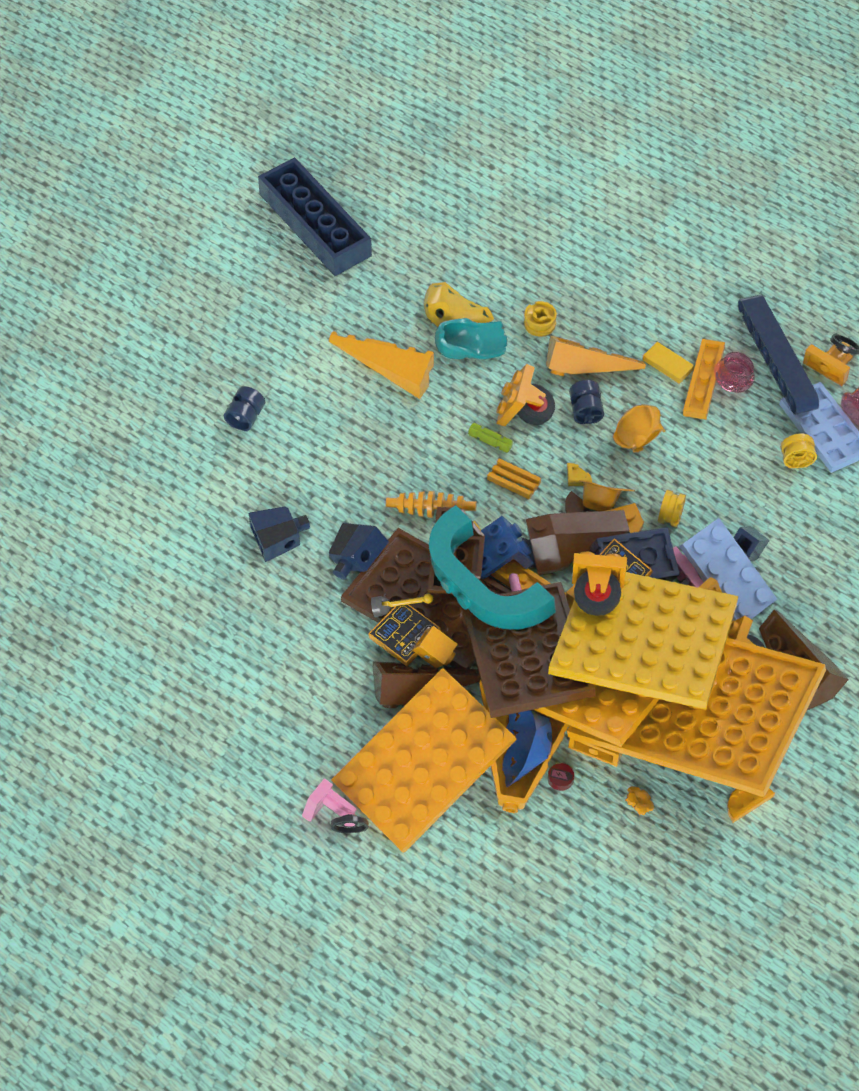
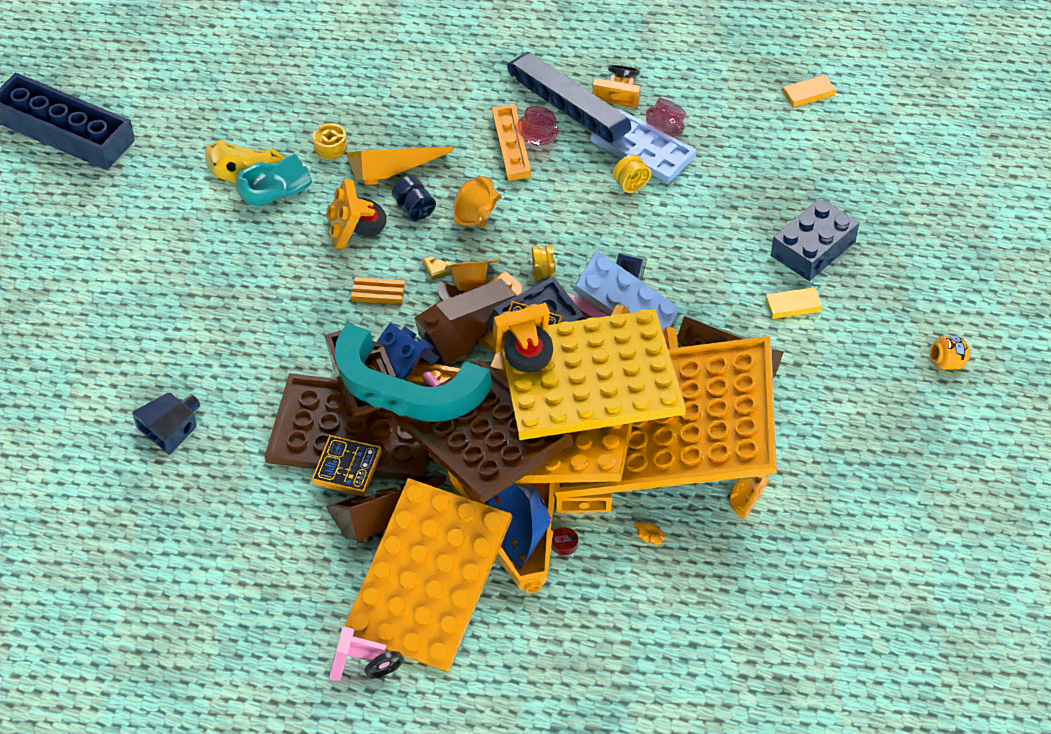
camera: 25 degrees left, 5 degrees down
(244, 408) = (77, 318): dark blue wheel -> none
(356, 548) = (258, 405): dark blue torso -> none
(382, 605) = (313, 448): hinge -> none
(401, 366) = (218, 226): light orange wedge -> none
(430, 503) = (300, 343): light orange piece -> none
(435, 647) = (386, 465): light orange brick -> none
(490, 437) = (336, 262): lime axle -> none
(668, 362) = (470, 140): yellow tile -> none

